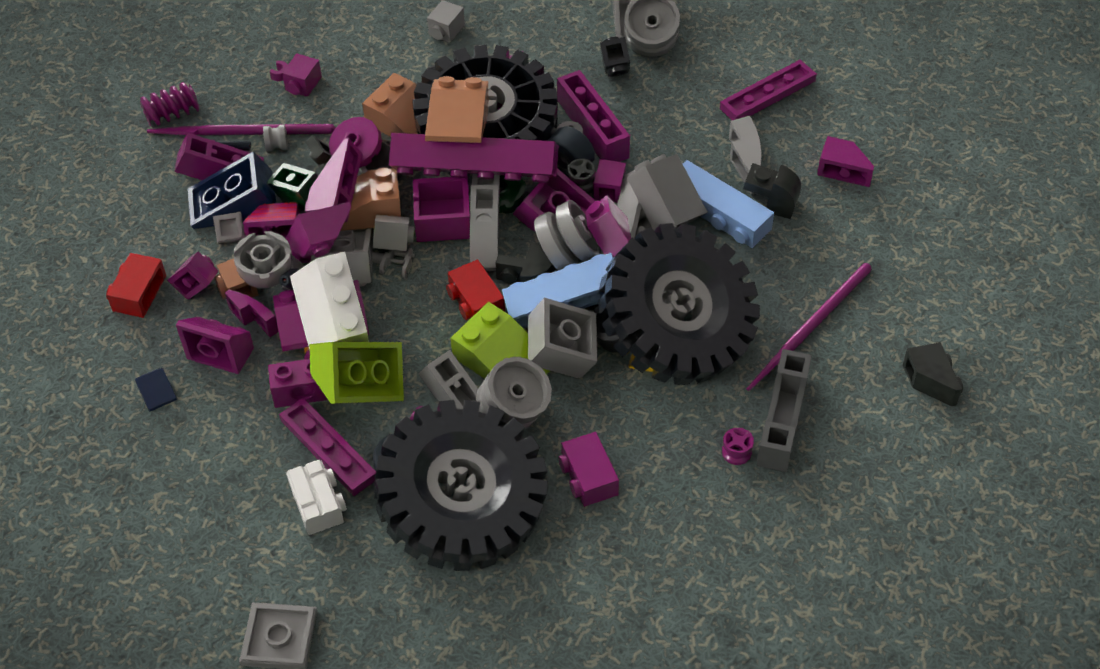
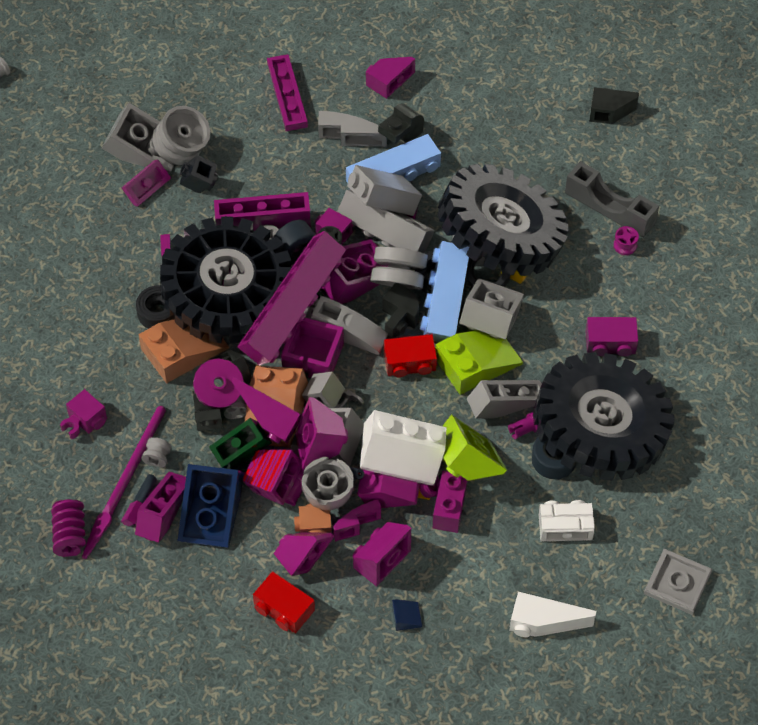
camera: 70 degrees left, 5 degrees up
(184, 506) = (543, 616): none -> white slope
(229, 227) = (248, 516): light grey tile -> none
(328, 446) = (517, 501): magenta plate -> none
(445, 21) = (79, 282): light grey brick -> none
(457, 110) = (253, 287): nougat slope -> none
(517, 389) = (532, 356): light grey wheel -> none
(588, 26) = (146, 182): none -> magenta plate
(608, 225) = (408, 237): magenta slope -> none
(807, 328) = (555, 187): magenta piece -> none

